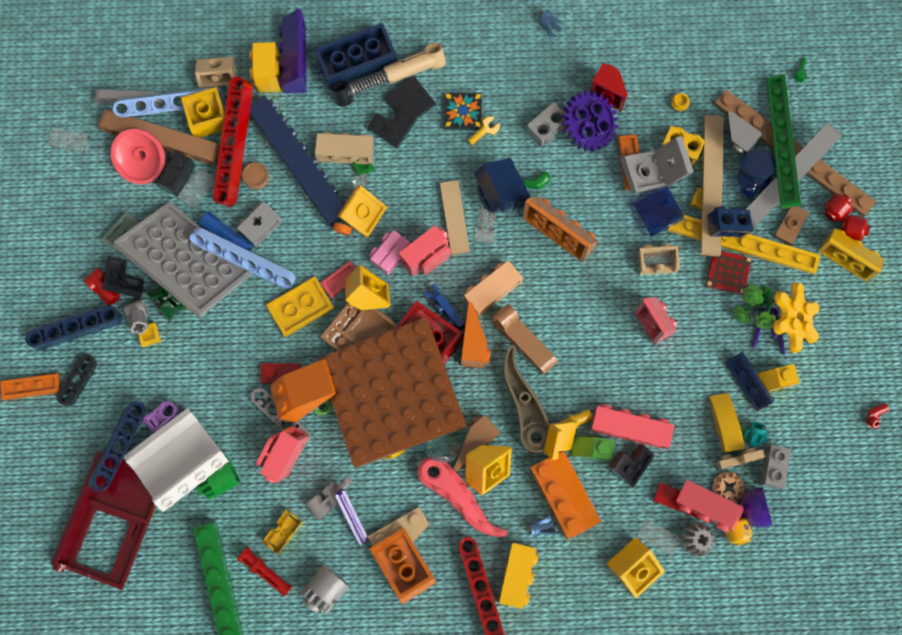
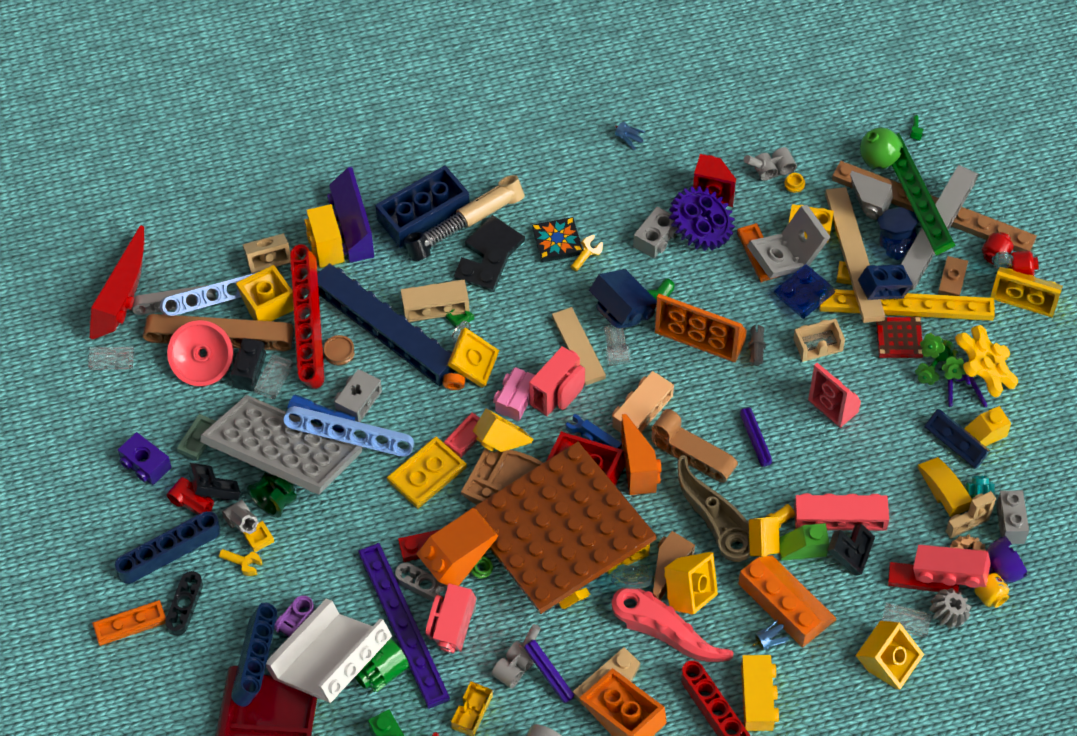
camera: 15 degrees left, 20 degrees down
(64, 235) = (139, 448): none -> dark purple brick
(86, 78) = (119, 289): none -> red wedge
(131, 352) = (252, 557): none -> yellow bar
(247, 441) = (404, 626): none -> dark purple tile
(580, 338) = (756, 437): none -> dark purple axle
(604, 253) = (757, 345): none -> dark grey axle
(661, 82) = (768, 168): none -> light grey beam
(764, 86) = (880, 147): none -> bright green cylinder
(838, 223) = (1002, 259): none -> clear light blue plate

